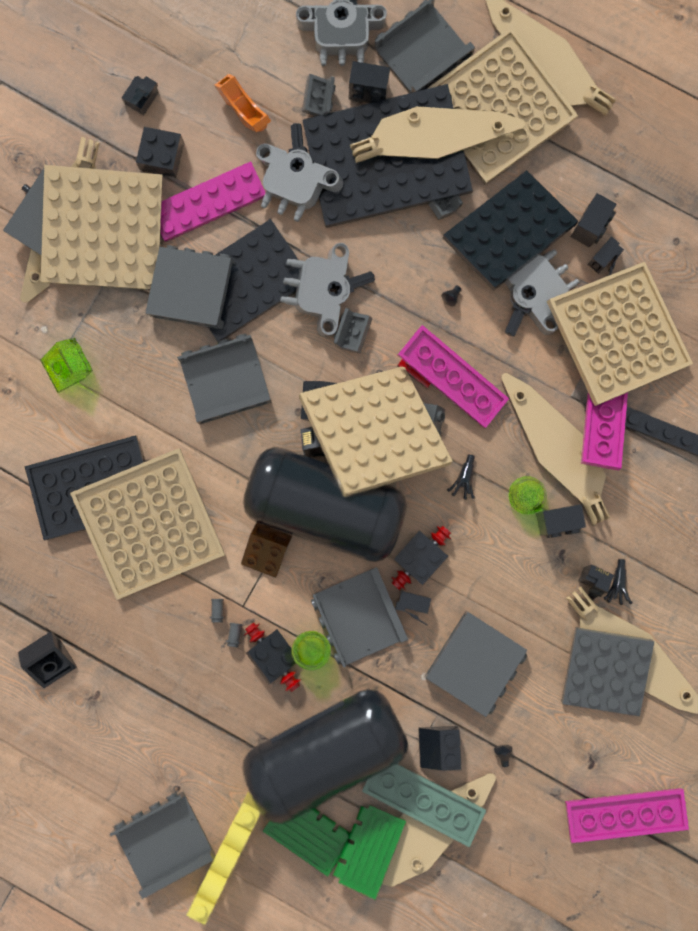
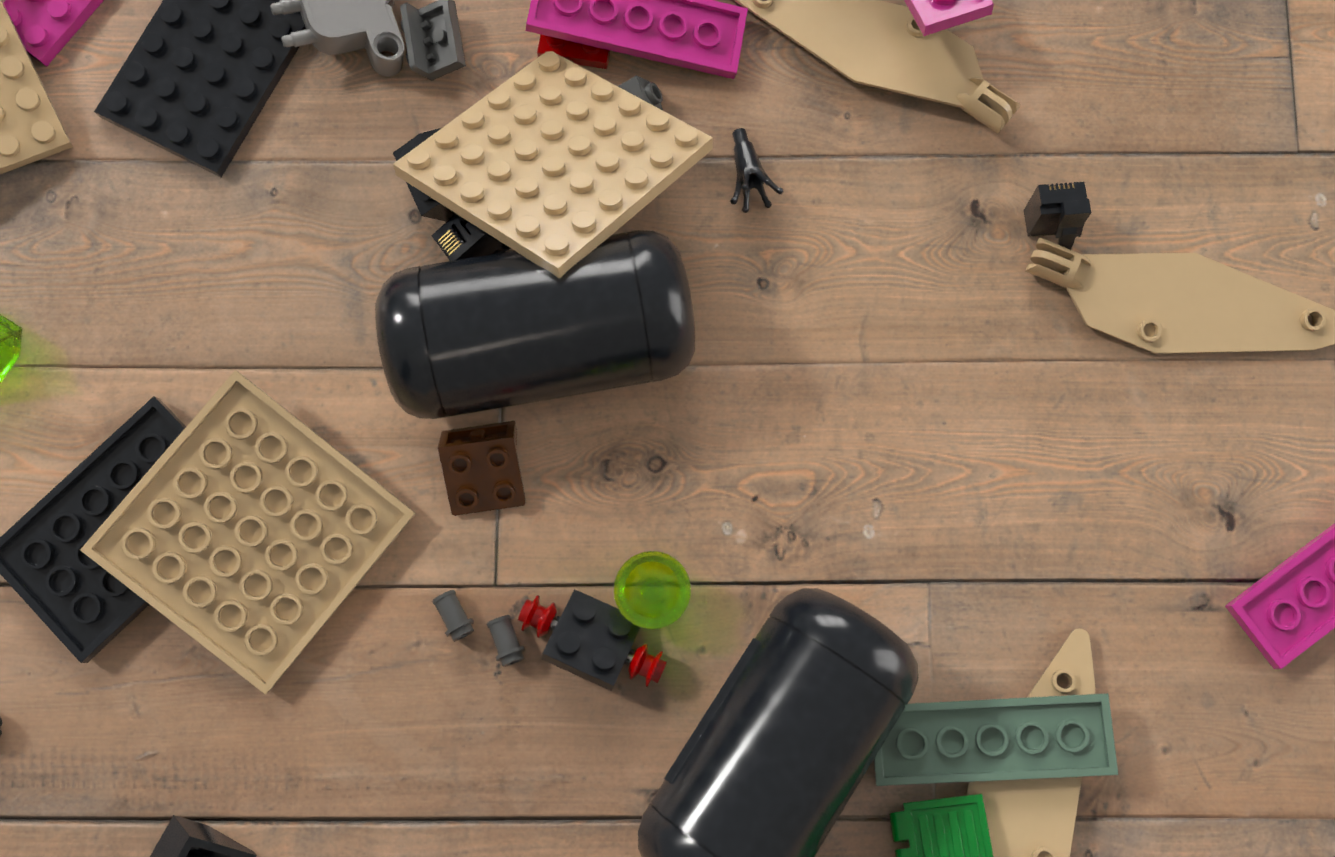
camera: 25 degrees left, 5 degrees down
(189, 286) = (118, 106): dark grey panel -> none
(224, 378) = (259, 225): dark grey panel -> none
(359, 617) = (704, 490): dark grey panel -> none
(413, 602) = (780, 413): black piece -> none
(421, 557) = (751, 335): black plate -> none
(440, 748) = (966, 634): black slope -> none
(476, 664) = (944, 457): dark grey panel -> none
(503, 753) = (1077, 583): black rock -> none
(527, 495) = (866, 142): clear neon green cone -> none
(560, 520) = (944, 147): black brick -> none
(607, 671) = (1165, 350): dark grey plate -> none
(619, 584) = (1100, 202): black piece -> none

